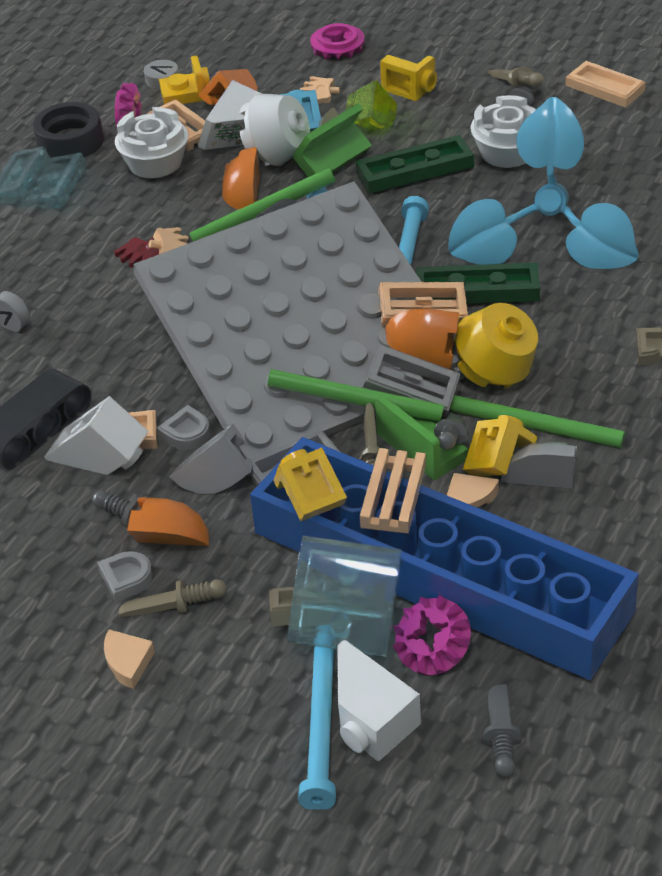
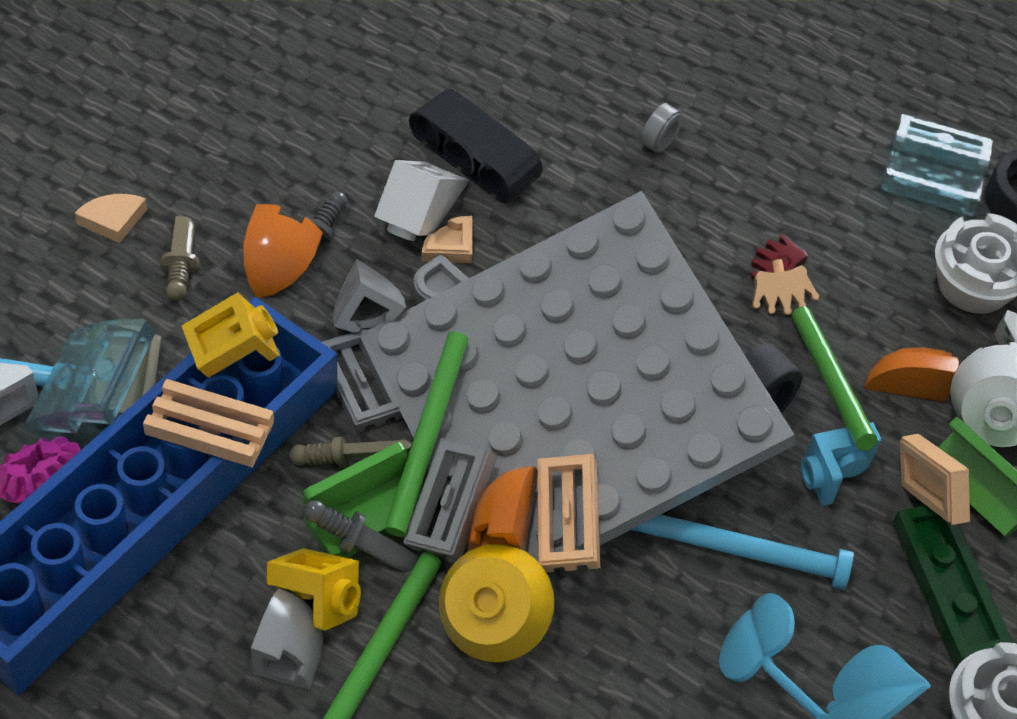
camera: 85 degrees right, 10 degrees up
(126, 574) = (225, 220): light grey tile -> none
(350, 152) = (935, 478): none -> light nougat tile
(473, 489) = (259, 544): light nougat tile -> none
(489, 281) = (660, 621): dark green plate -> none

